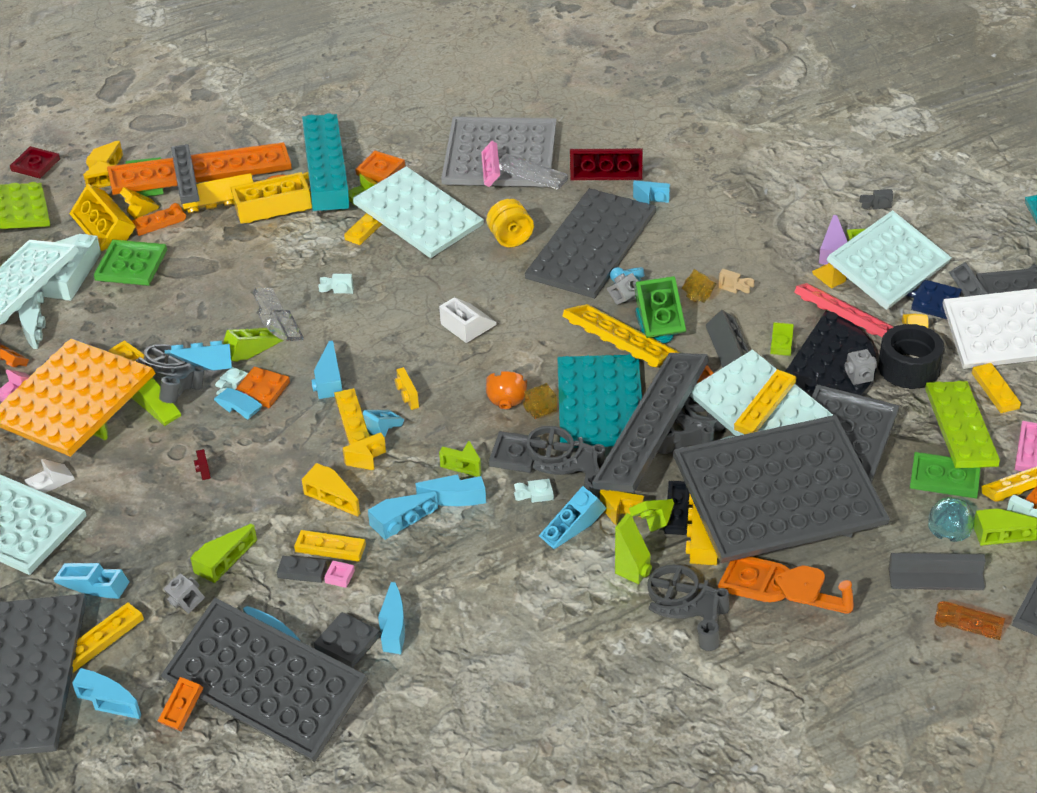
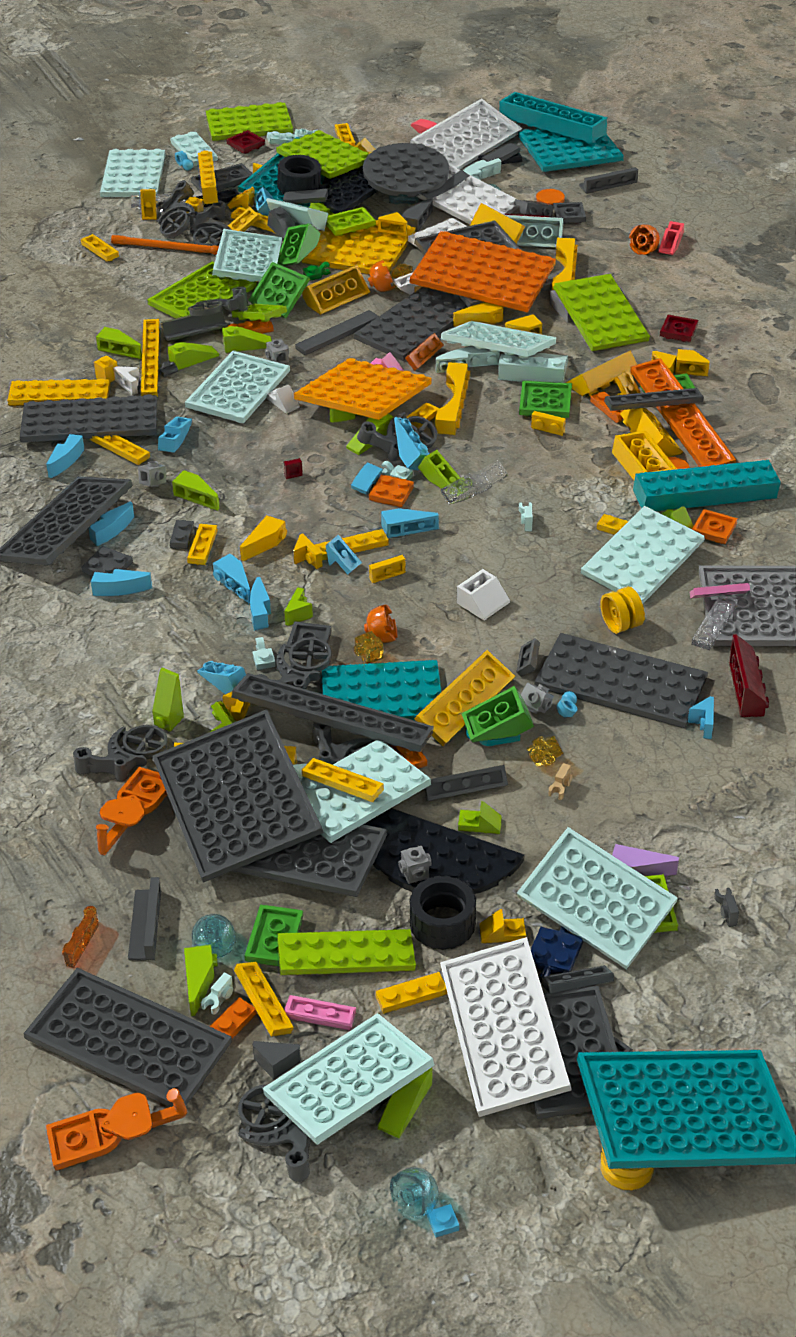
camera: 85 degrees right, 0 degrees up
(72, 325) = (449, 416): none -> yellow arch
(178, 261) = (548, 423): none -> yellow plate
(180, 704) = (48, 487): orange plate -> none
(339, 574) = (171, 551): bright pink plate -> none
(561, 294) = (528, 657): none -> dark grey plate
(828, 302) = (516, 874): coral plate -> none

